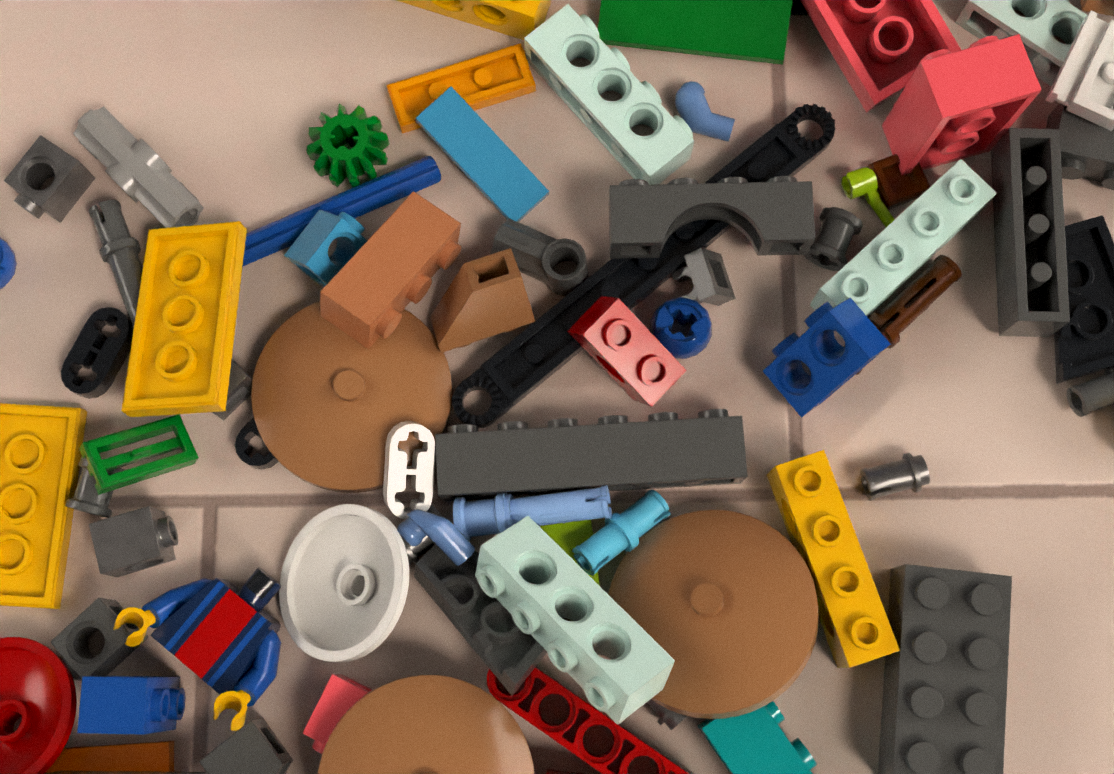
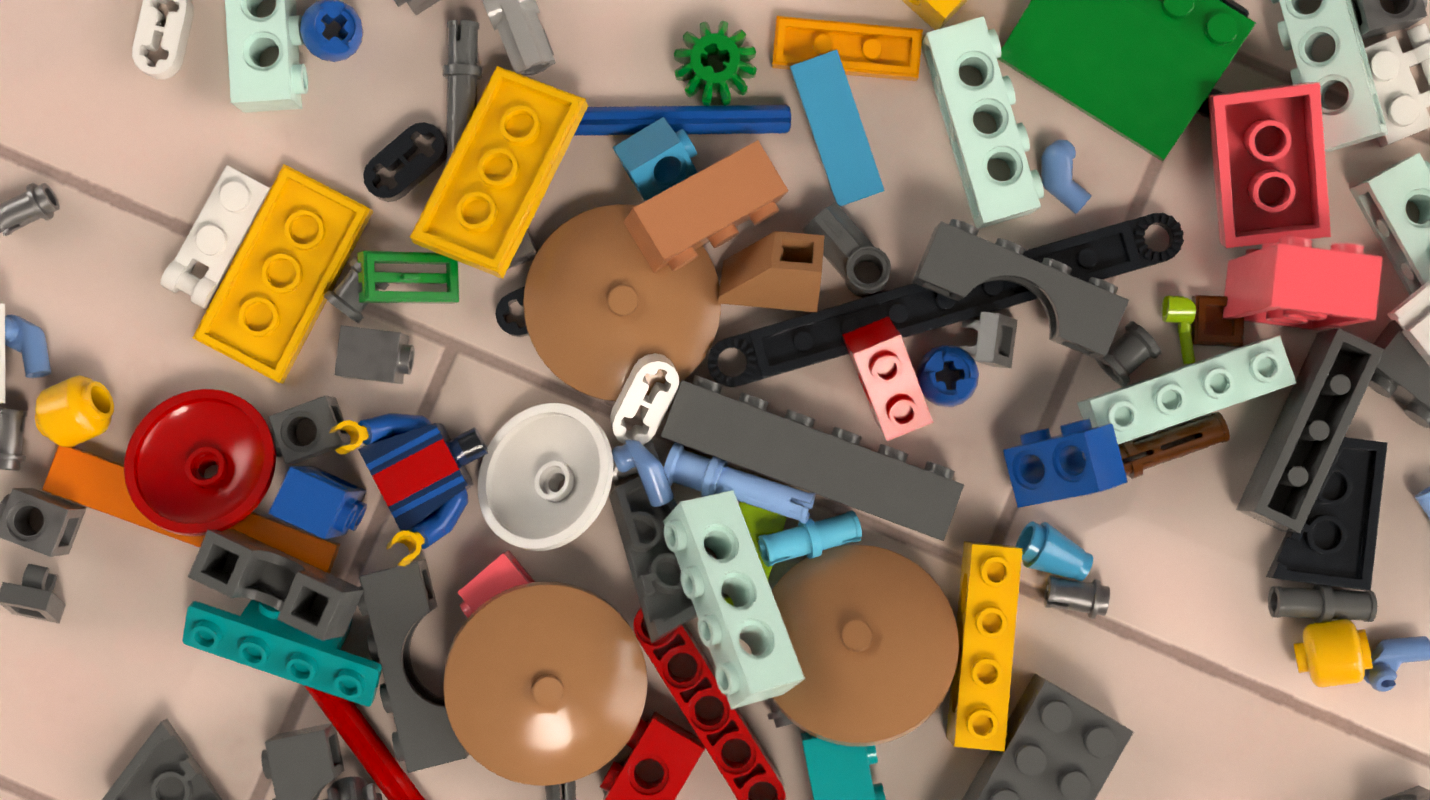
camera: 20 degrees right, 10 degrees up
(854, 445) = (1053, 552): none -> dark azure cone

